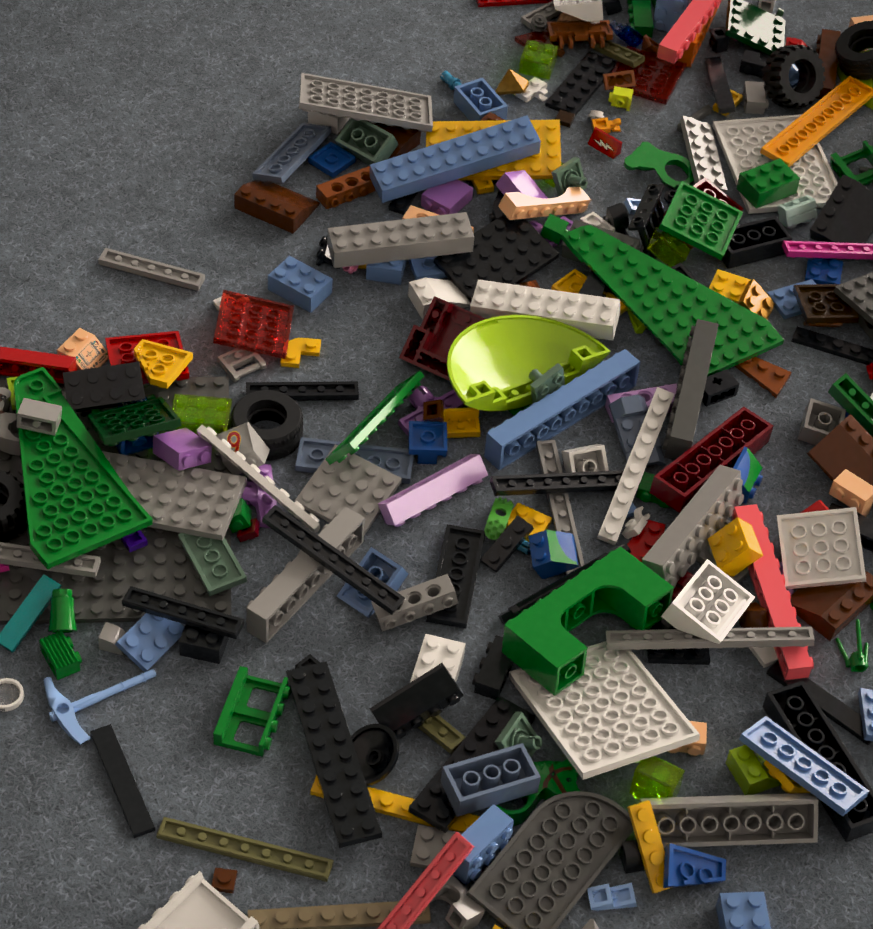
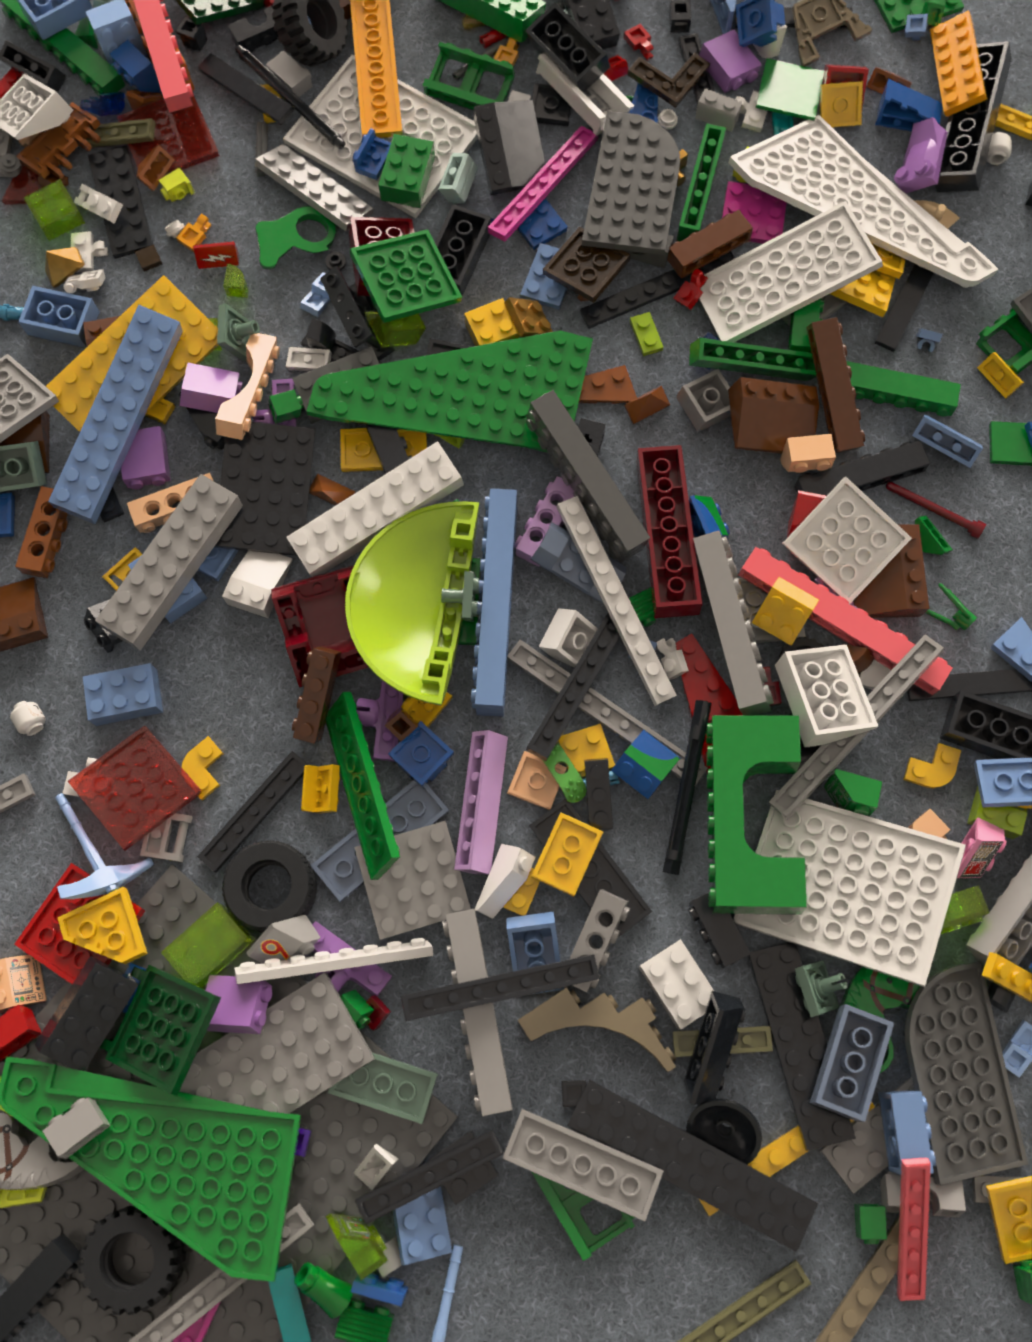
camera: 40 degrees left, 25 degrees up
(90, 640) = (389, 1290): none -> blue plate
(106, 604) = (360, 1243): none -> clear neon green slope
(162, 583) = (375, 1166): none -> white slope
(189, 342) = (104, 878): none -> light blue piece
(237, 255) = (27, 718): none -> white head
(272, 687) = (583, 1164): none -> light grey plate
(350, 409) = (320, 788): none -> yellow bracket
(355, 624) = (632, 1022): none -> dark tan arch
(398, 534) = (505, 878): none -> white slope
(400, 881) = (870, 1222): none -> green brick
(404, 362) = (317, 694): none -> reddish brown brick
(405, 552) = (522, 899): none -> yellow plate
(451, 554) = (567, 854): none -> yellow tile
(475, 511) = (535, 782): none -> light nougat tile
(515, 100) = (87, 280): none -> white plate
(566, 73) = (98, 203): none -> white plate
(599, 162) = (235, 283): none -> clear neon green brick
(662, 24) = (135, 68): none -> blue slope
(669, 670) = (853, 792): none -> green slope
(709, 764) = (982, 845): none -> slope
(733, 718) = (935, 774): none -> yellow plate
(741, 107) = (286, 93): none -> black piece
(753, 158) = (371, 155): none -> blue bracket
(781, 399) = (647, 404): none -> dark orange slope
(825, 370) = (646, 334): none -> lime plate

